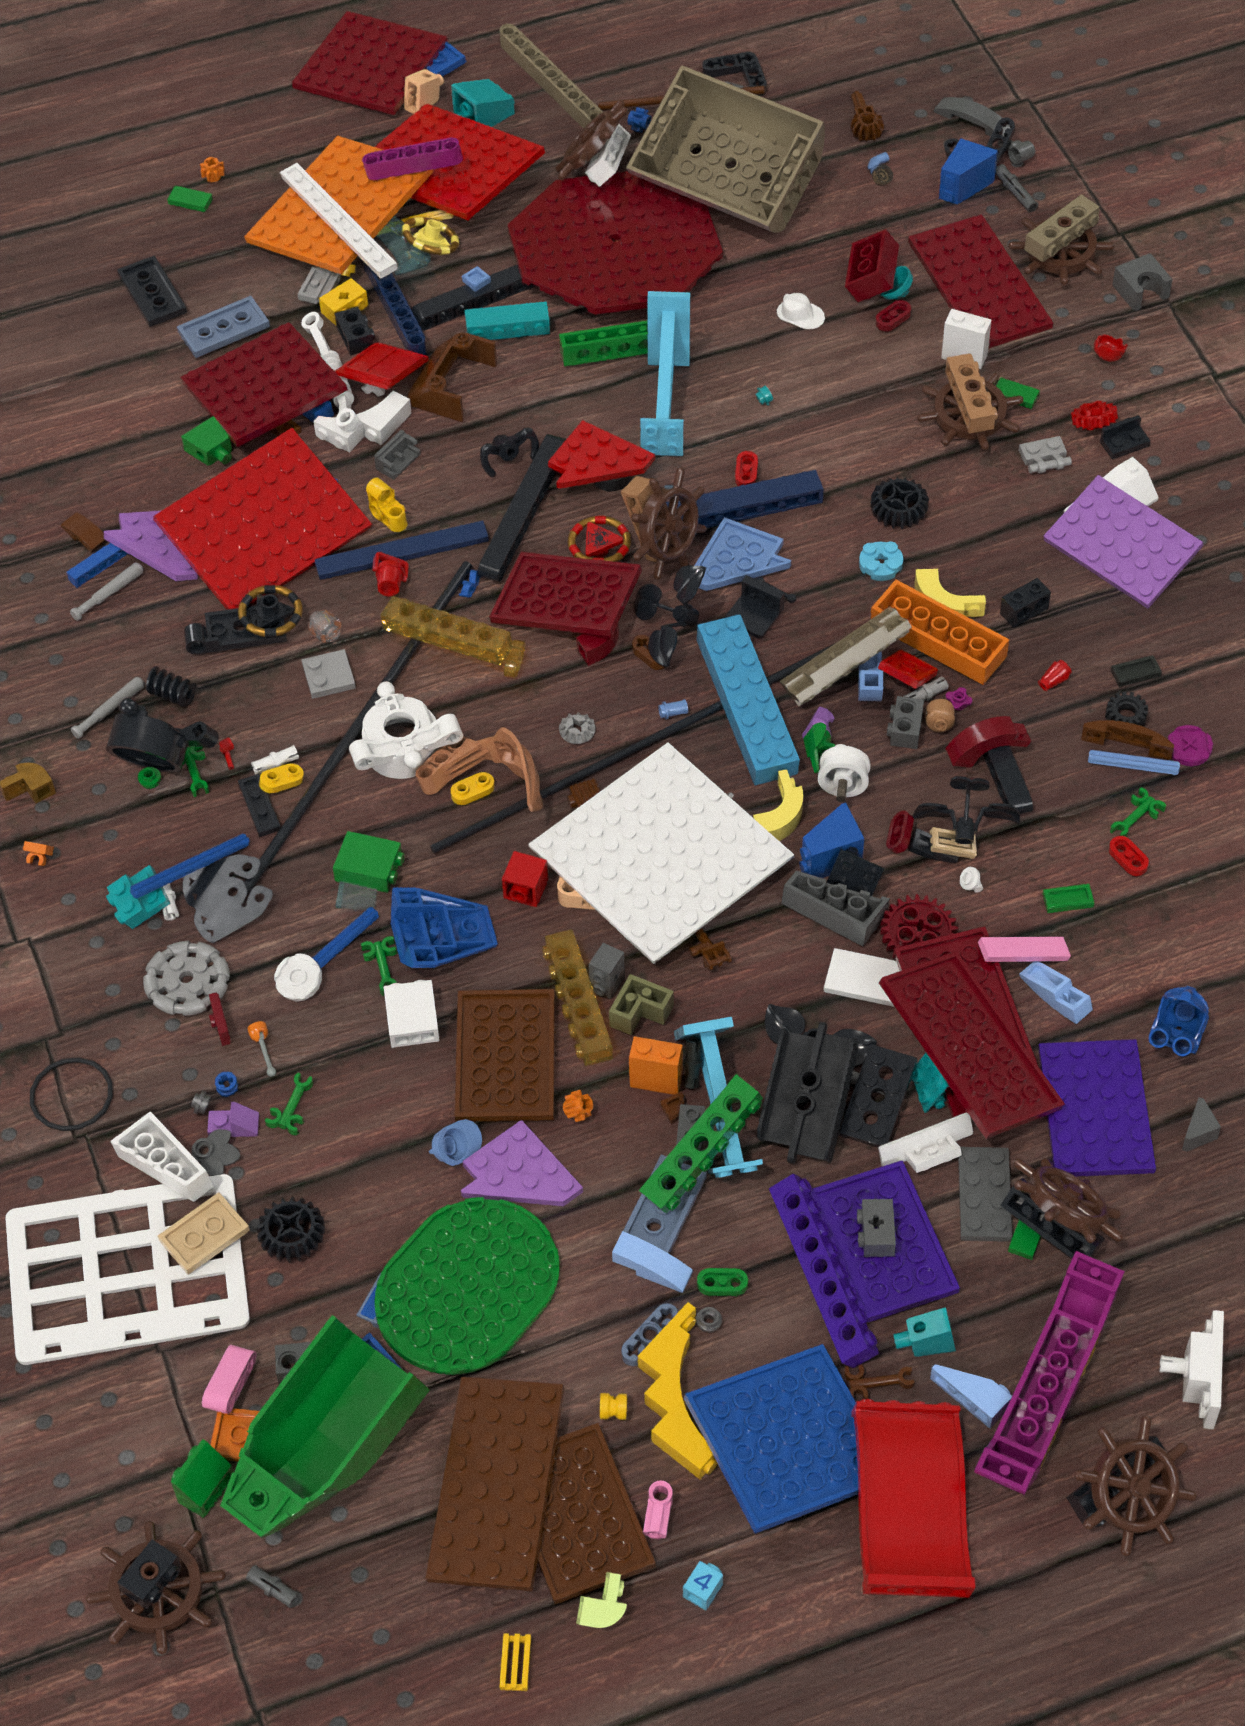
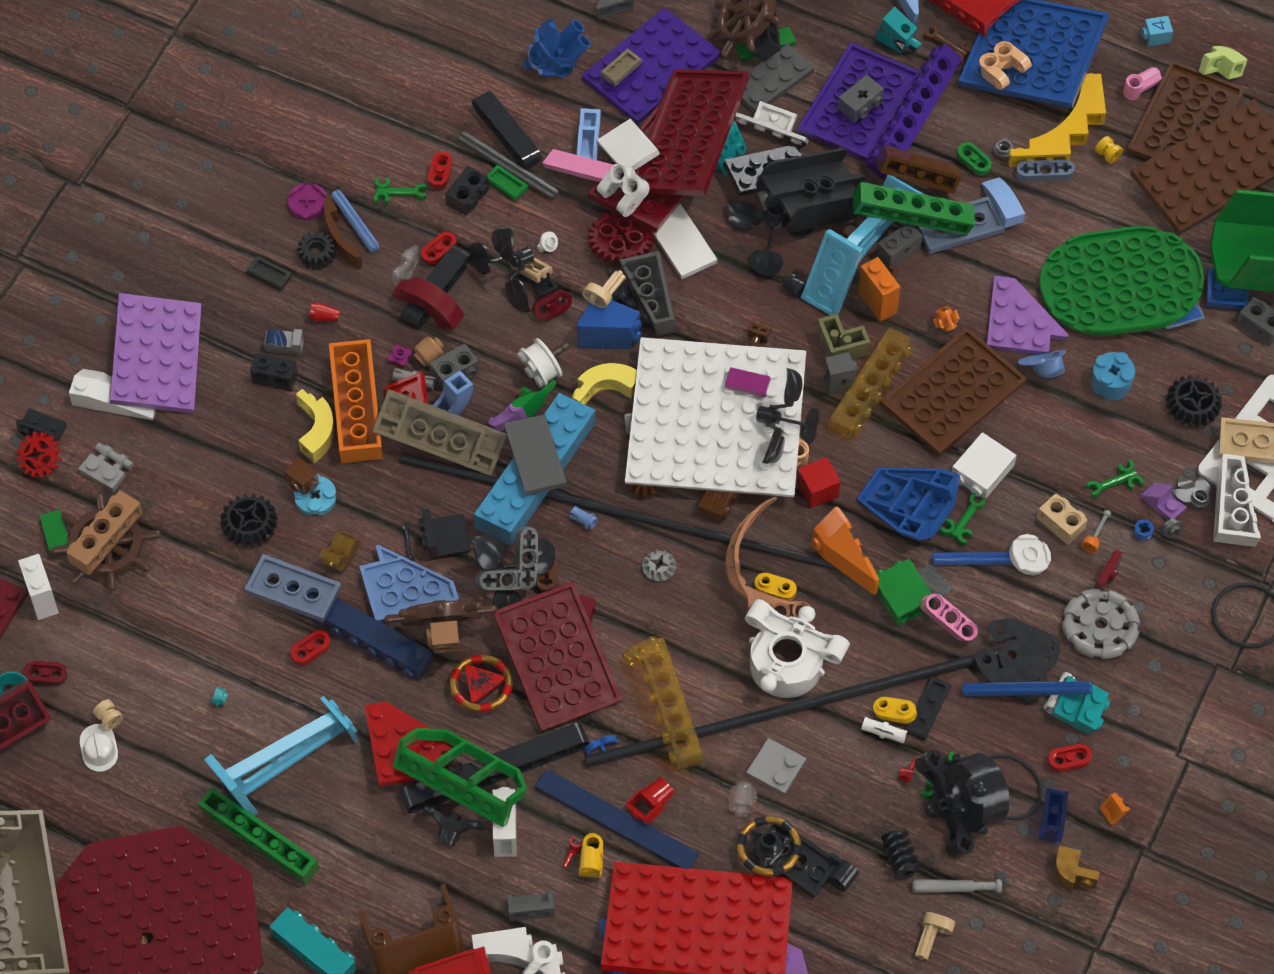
camera: 135 degrees left, 5 degrees up
(78, 800) = (1053, 815): none -> clear blue brick
(98, 666) = (932, 924): none -> tan piece
(109, 859) = (1068, 757): none -> red plate
(123, 767) = (1033, 771): none -> black piece
(301, 1022) = (1059, 521): none -> tan brick
(306, 863) = (939, 613): none -> bright pink beam
(383, 1184) = (1112, 375): none -> dark azure brick
(409, 508) = (573, 849): none -> red hand
(450, 843) = (840, 549): none -> orange wedge
(470, 472) = (505, 837): none -> white brick
(532, 439) = (453, 786): none -> green plate
(605, 869) = (771, 416): none -> black plant
(659, 608) = (517, 573): none -> dark grey beam
(664, 885) = (747, 382): none -> magenta tile
(738, 1022) = (794, 284): none -> black wheel
(747, 1201) = (918, 169): none -> reddish brown brick
(750, 687) = (535, 454): none -> dark grey tile
(788, 1393) = (1003, 57): none -> light nougat piece
(802, 462) = (297, 600): none -> sand blue plate
(806, 532) = (341, 551): none -> pearl gold brick
(813, 326) = (109, 716): none -> tan wheel
(852, 831) = (600, 295): none -> tan piece
(898, 547) = (301, 477): none -> reddish brown brick
(947, 942) = (631, 198): none -> white piece
(1004, 990) = (628, 145): none -> white tile
(1042, 799) = (437, 248): none -> red plate
(1045, 761) = (409, 262): none -> clear slope
(1050, 632) = (284, 342): none -> light grey leg
(1086, 911) = (508, 165): none -> dark grey axle
(1088, 856) = (464, 189): none -> black brick
(1108, 1064) = (621, 67): none -> dark tan plate
(1126, 934) = (506, 130): none -> black beam

